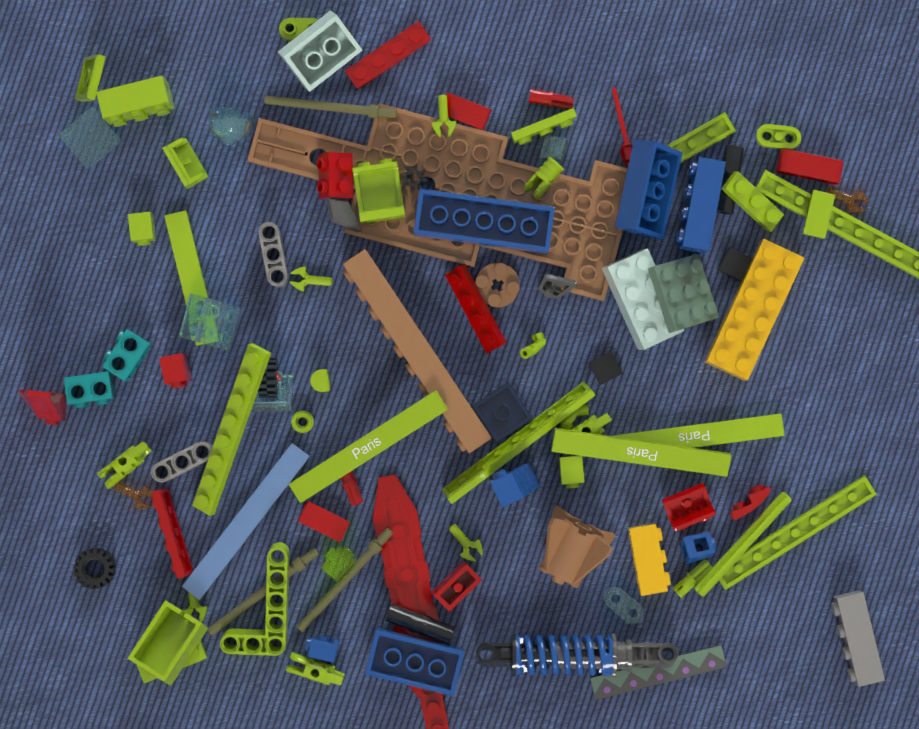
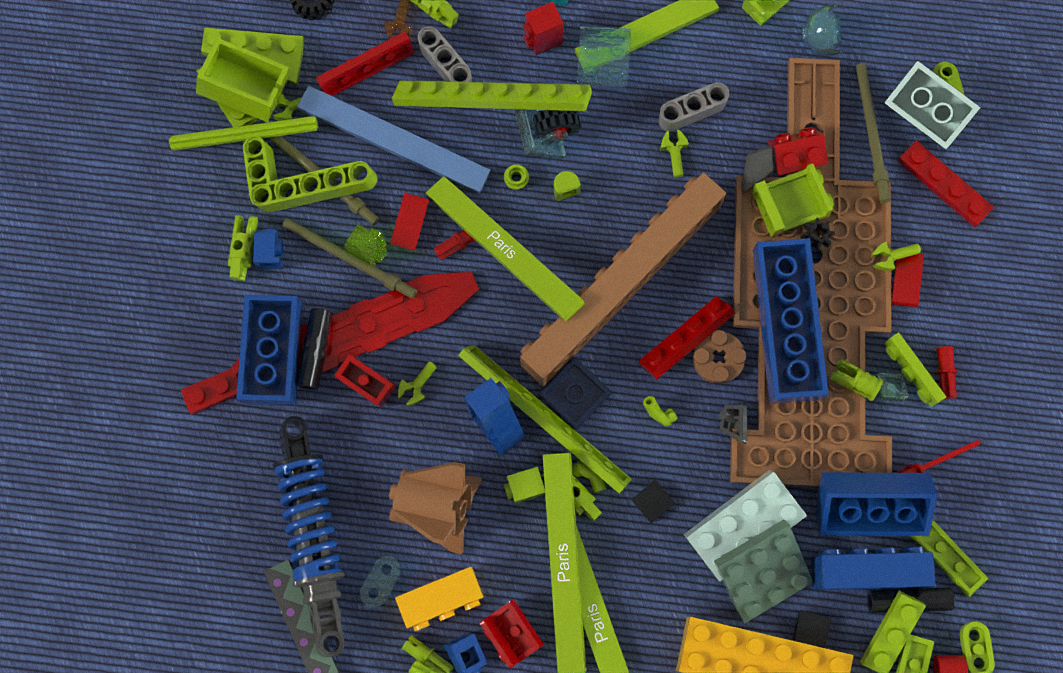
camera: 80 degrees right, 10 degrees down
(138, 613) = (277, 47): none -> lime wing
(213, 651) = (241, 133): none -> lime axle

